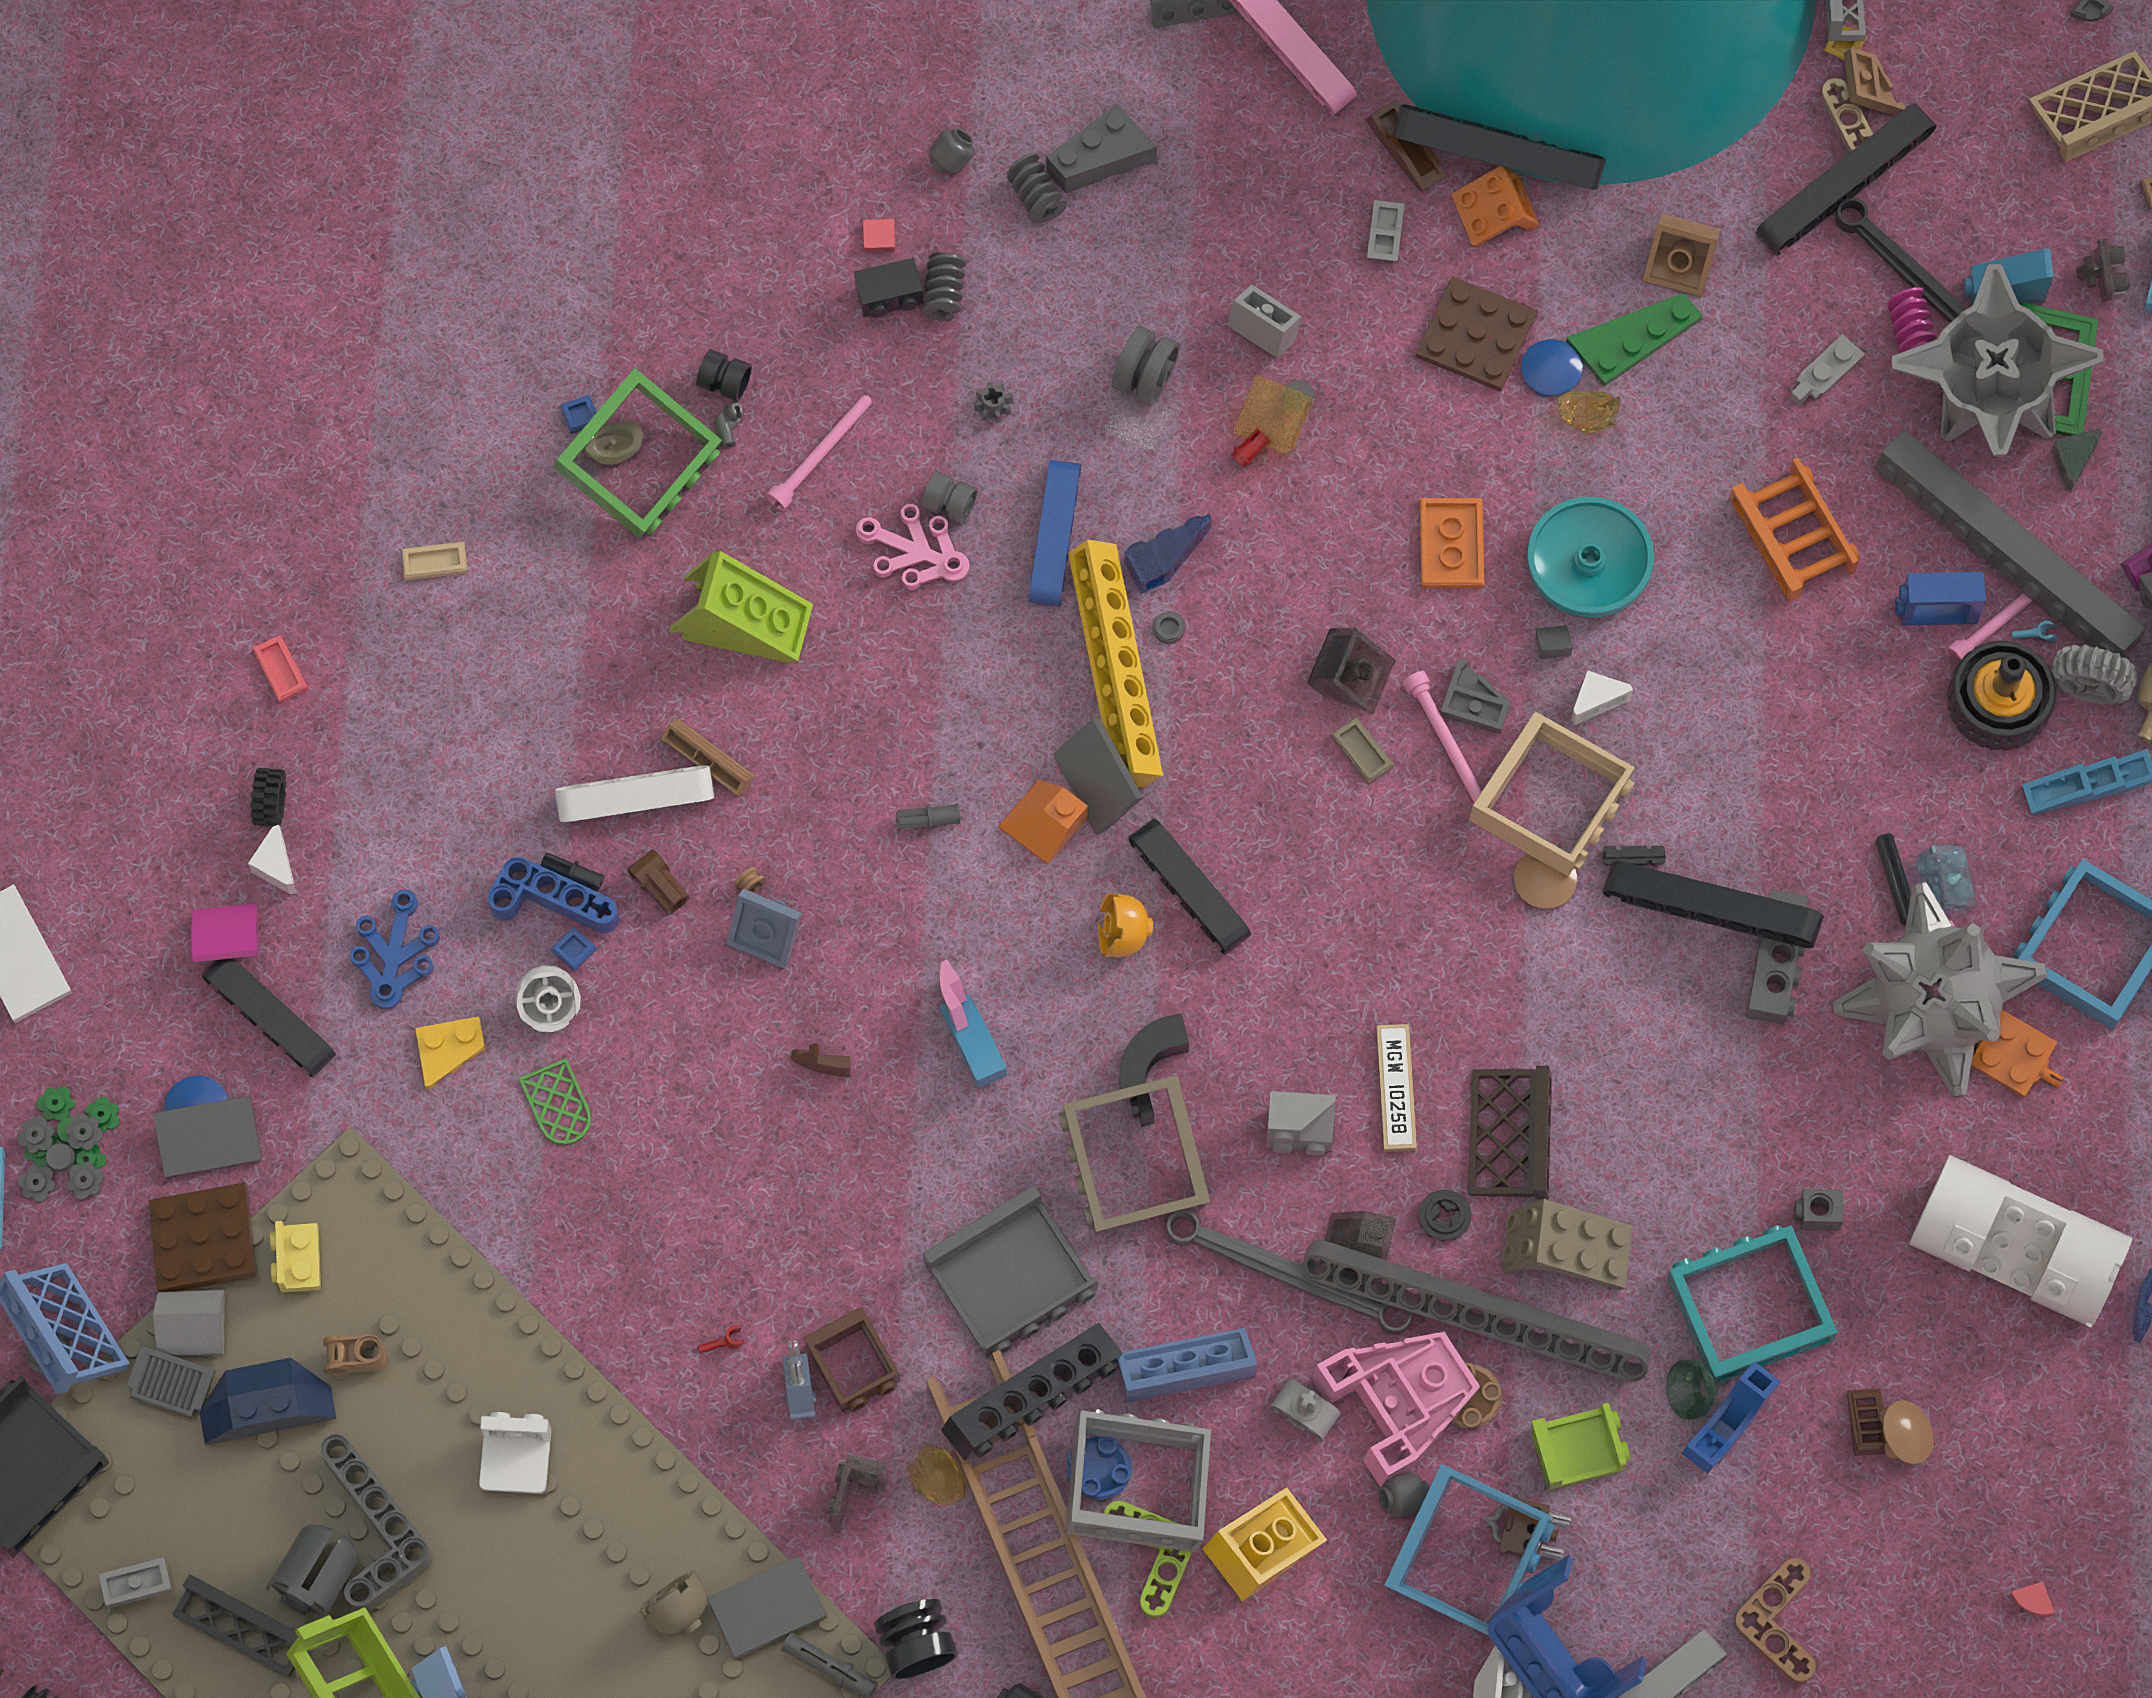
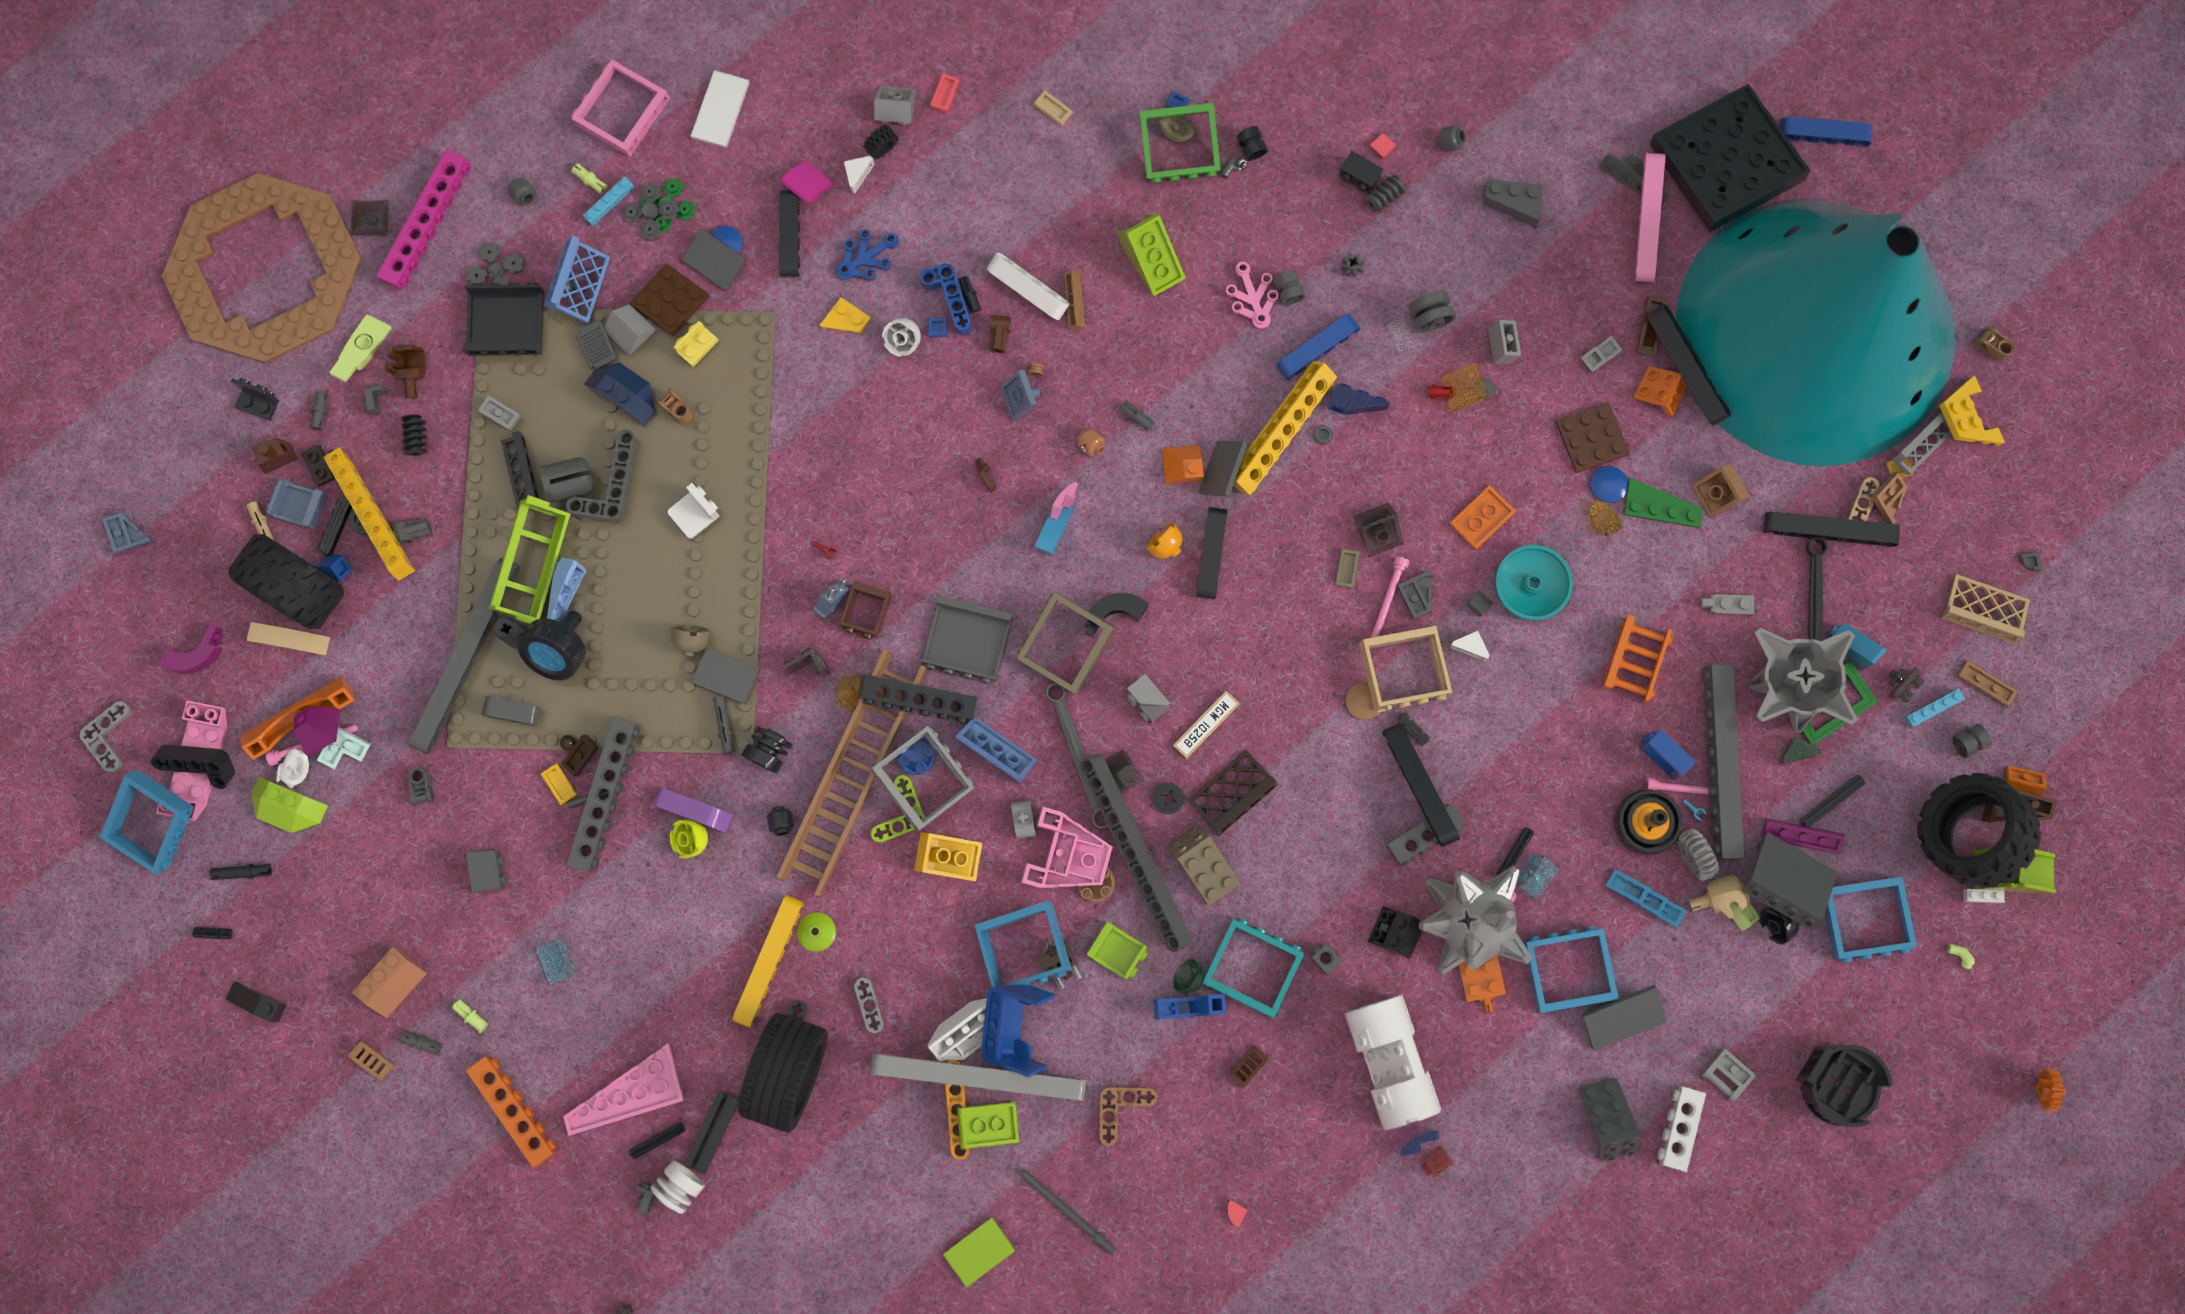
camera: 50 degrees right, 10 degrees up
(235, 739) = (894, 104): none -> light grey slope
(544, 1071) = (863, 389): bright green window -> none
(784, 491) = (1223, 218): bright pink piece -> none
(909, 899) = (1091, 442): none -> nougat head
(1034, 189) = (1469, 189): dark grey piece -> none
(1403, 1495) = (1024, 895): dark grey head -> none
(1864, 1098) = (1396, 932): none -> black slope
(1906, 1432) = (1258, 1089): medium nougat dish -> none
(1910, 319) = (1789, 619): dark pink piece -> none

